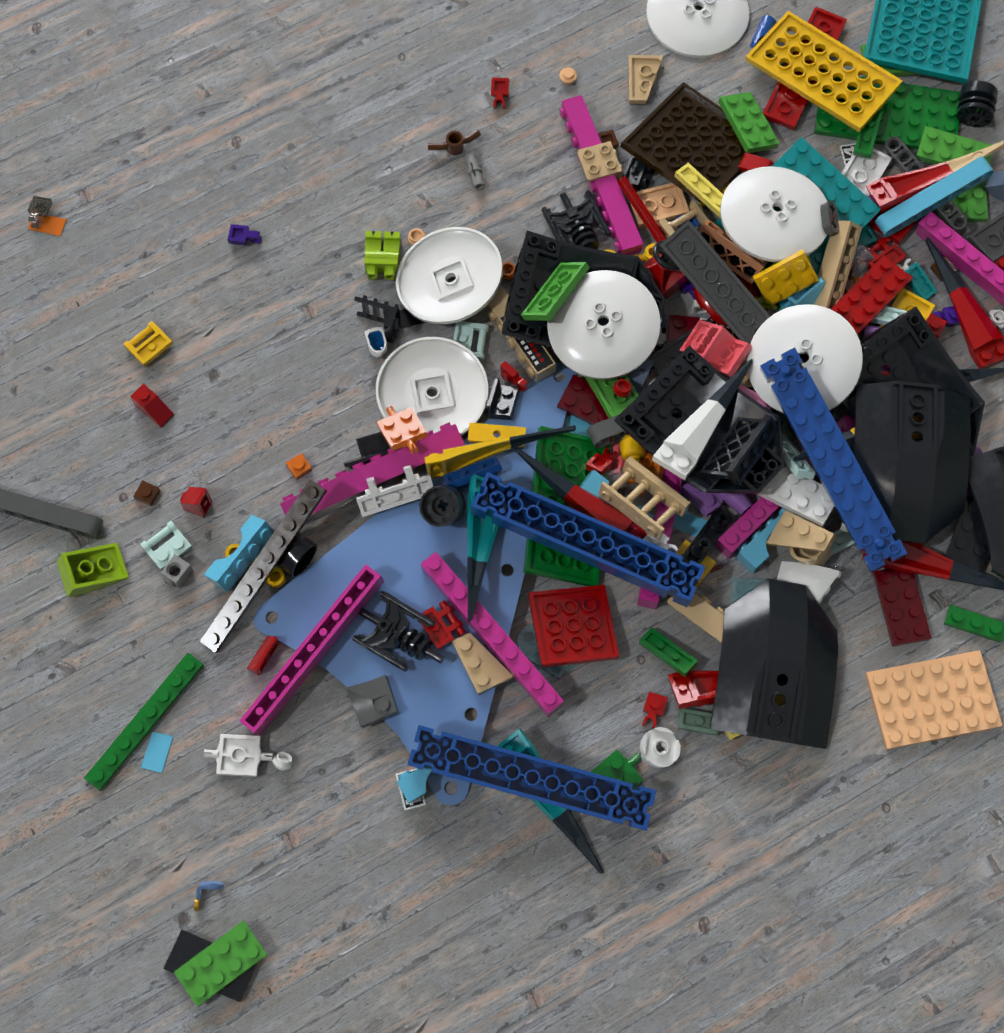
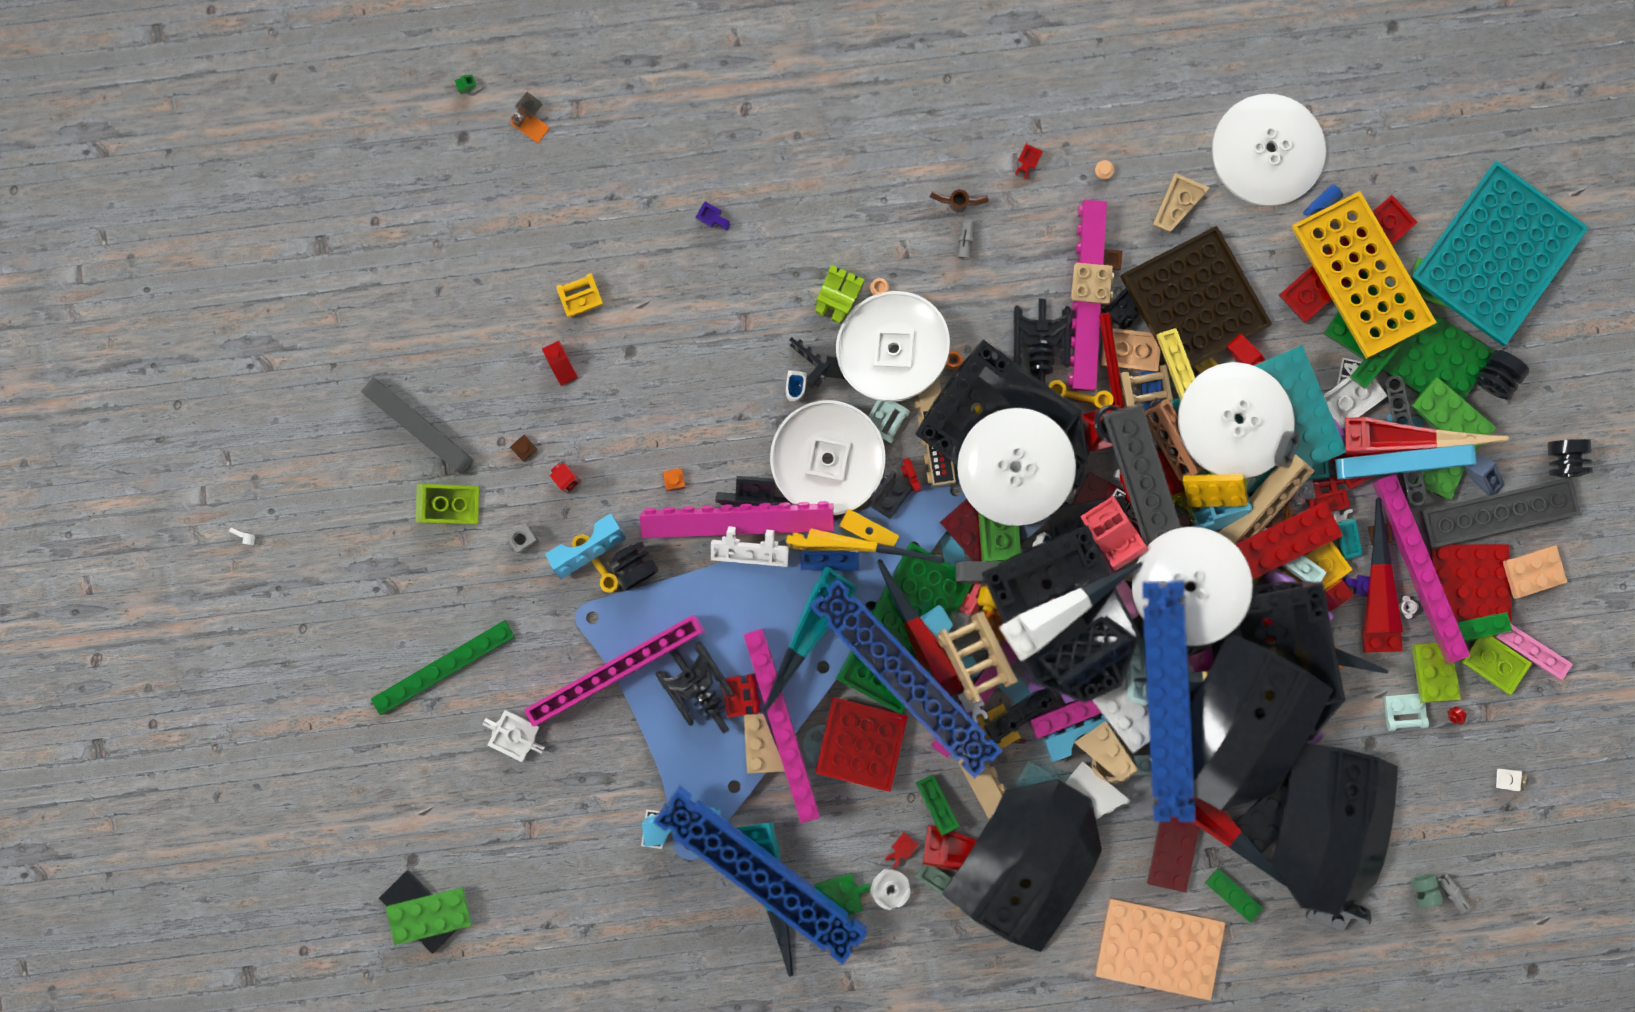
camera: 25 degrees right, 15 degrees up
(156, 752) = (443, 700): medium azure sticker -> none
(176, 545) = (523, 514): light aqua plate -> none
(205, 885) = (442, 837): medium blue piece -> none
(263, 566) = (601, 573): plate -> none
(263, 655) = (570, 650): red slope -> none
(282, 761) = (550, 758): white plate -> none
(373, 701) = (651, 739): dark grey plate -> none
(402, 429) = (780, 492): plate -> none
(431, 505) = (778, 590): black wheel -> none
(555, 291) = (983, 415): bright green plate -> none
(601, 463) = (954, 600): red plate -> none
(622, 388) = (1006, 536): red plate -> none
(748, 122) = (1261, 299): bright green plate -> none

